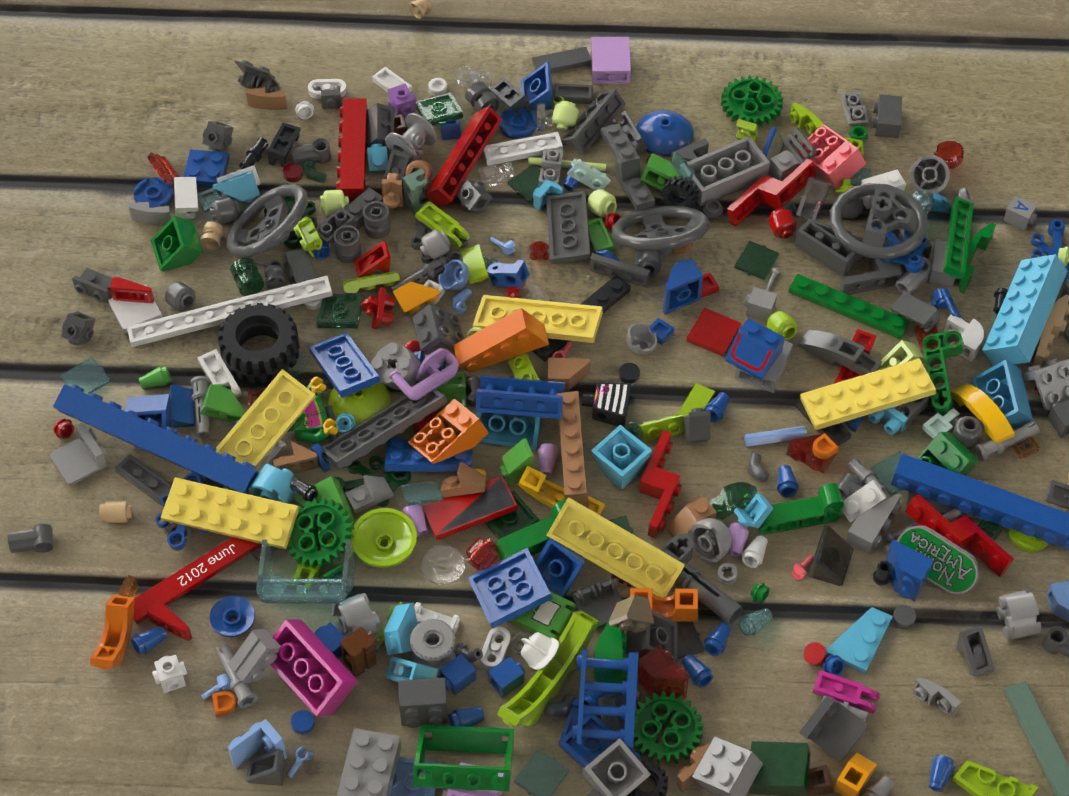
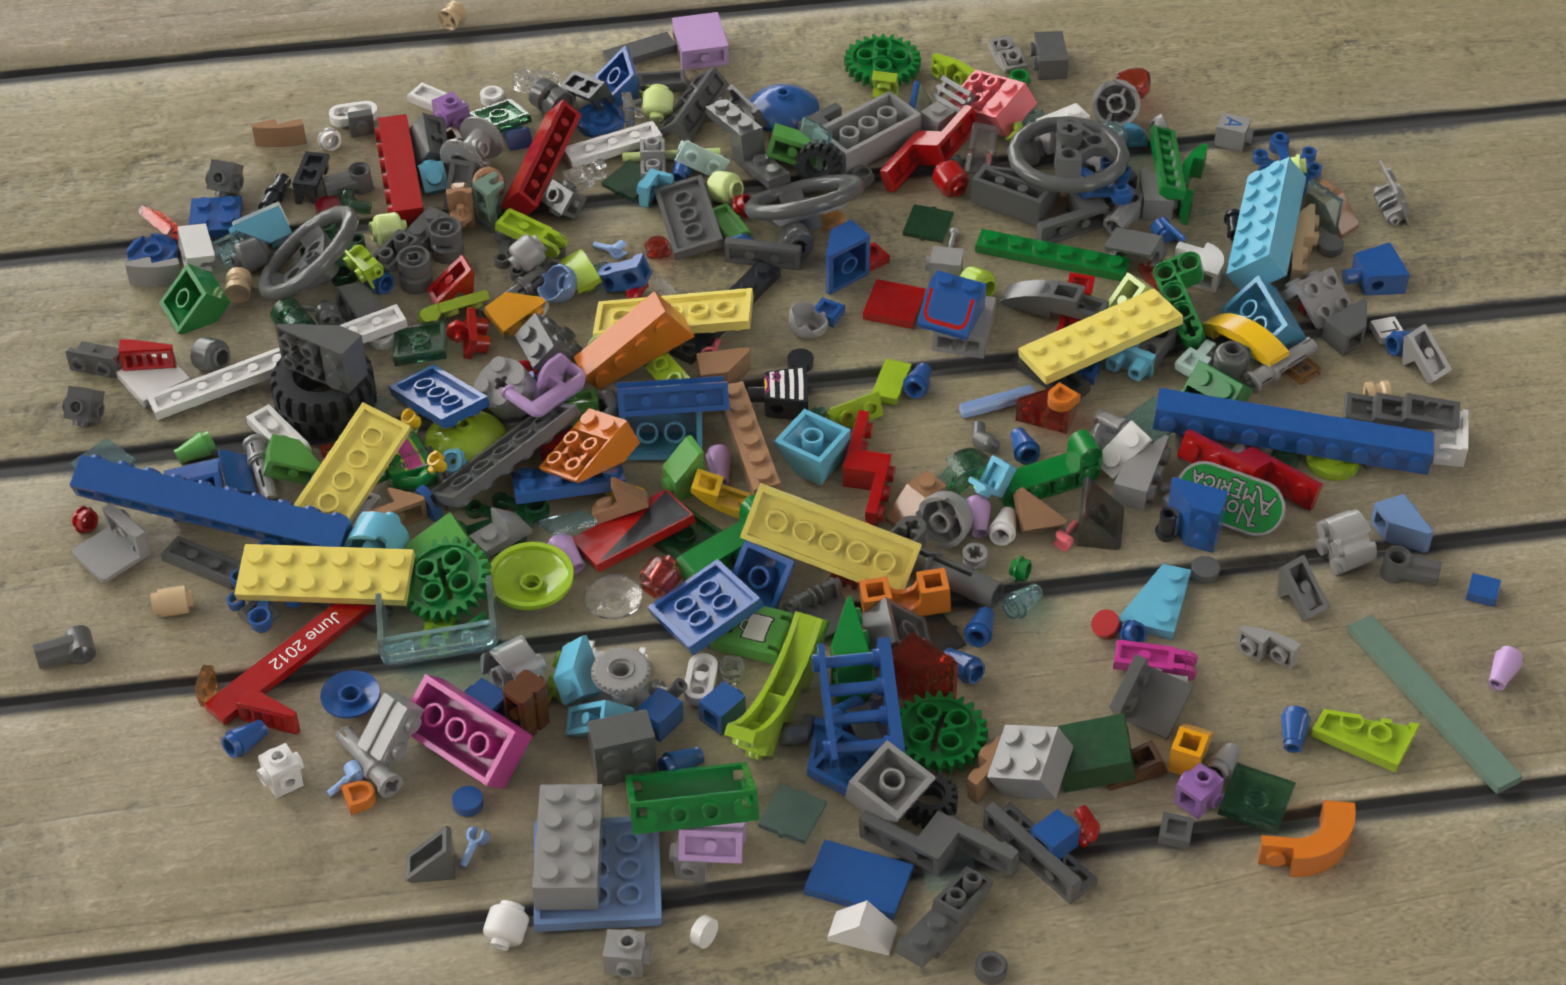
camera: 10 degrees left, 10 degrees down
(116, 633) = (200, 732): orange arch -> none
(256, 77) = (260, 107): dark grey hinge -> none
(258, 737) = (416, 821): light blue bracket -> none
(260, 323) = (323, 353): none -> dark grey slope
(303, 489) = (417, 533): black pin -> none
(459, 301) = (570, 311): medium blue arm -> none
(539, 650) = (758, 666): white piece -> none
(632, 614) = (871, 603): dark tan slope -> none
(697, 426) = (900, 398): dark grey slope -> none
(779, 548) = (1034, 514): none -> medium nougat slope

